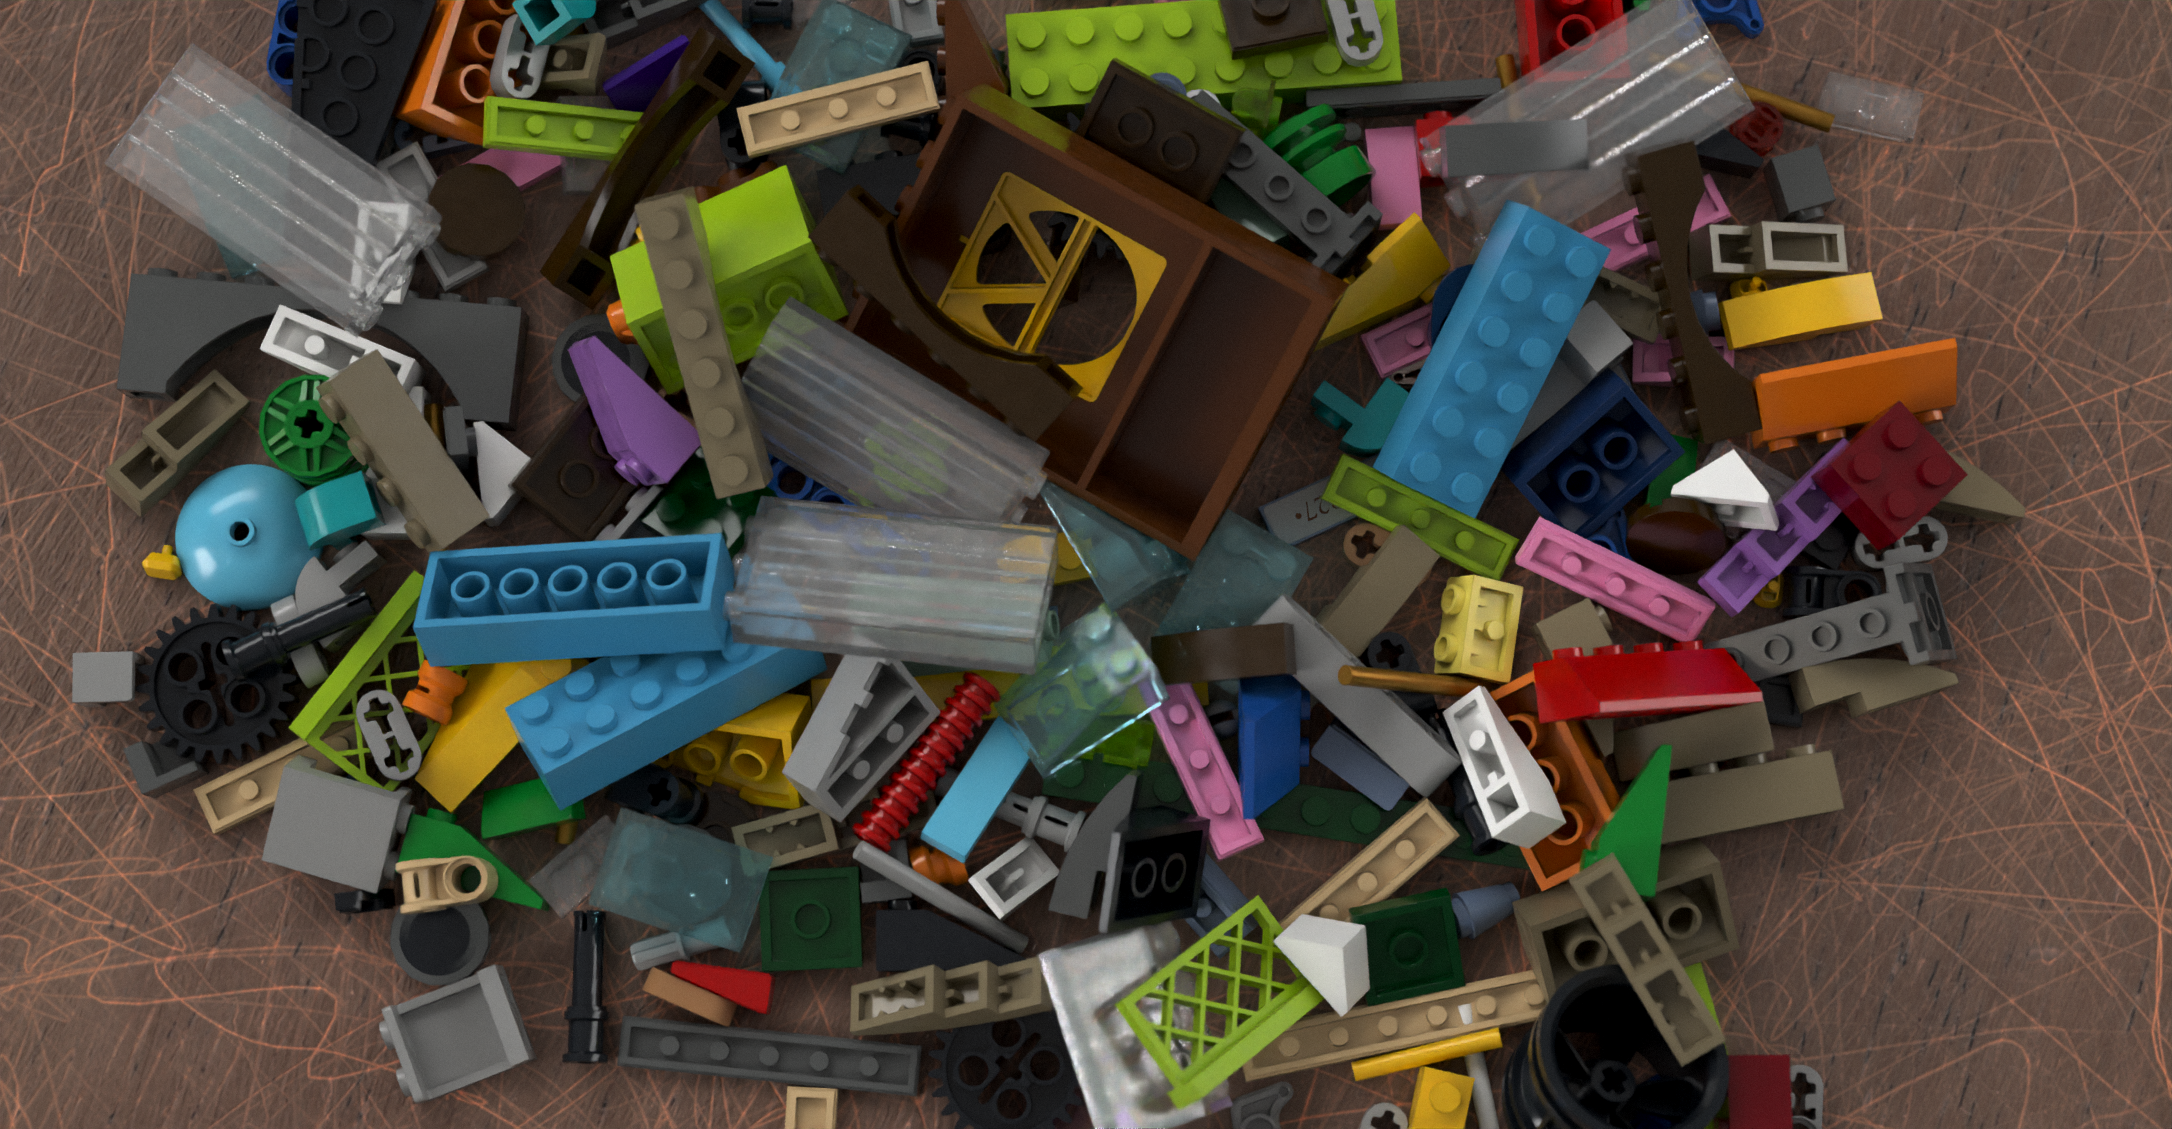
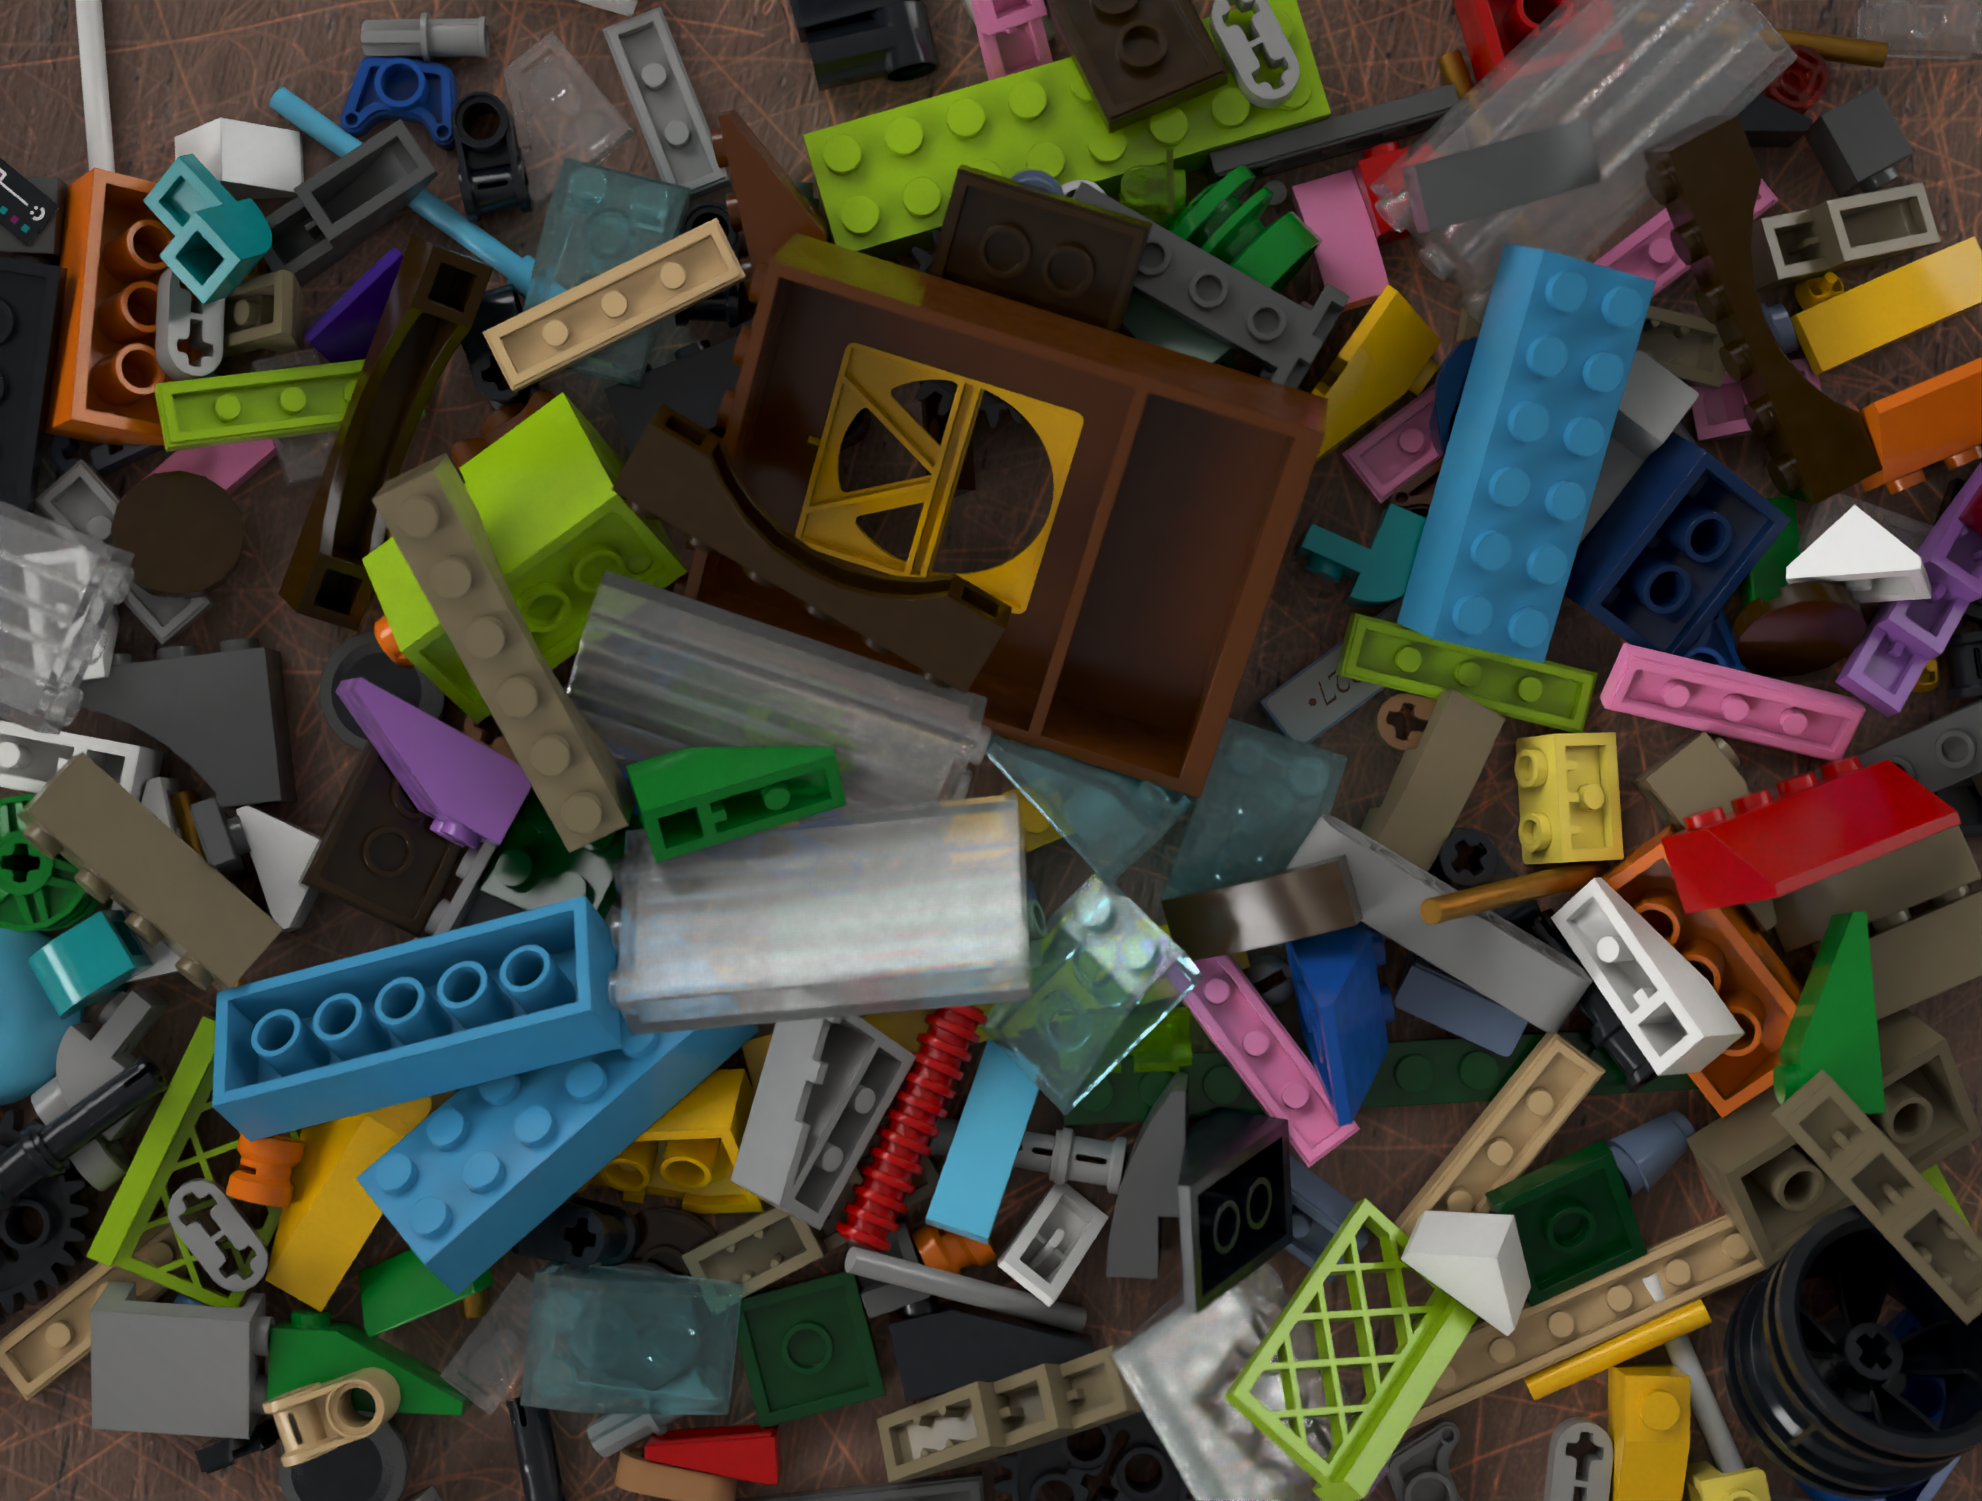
camera: 15 degrees left, 5 degrees up
(845, 481) = (730, 792): none -> green slope

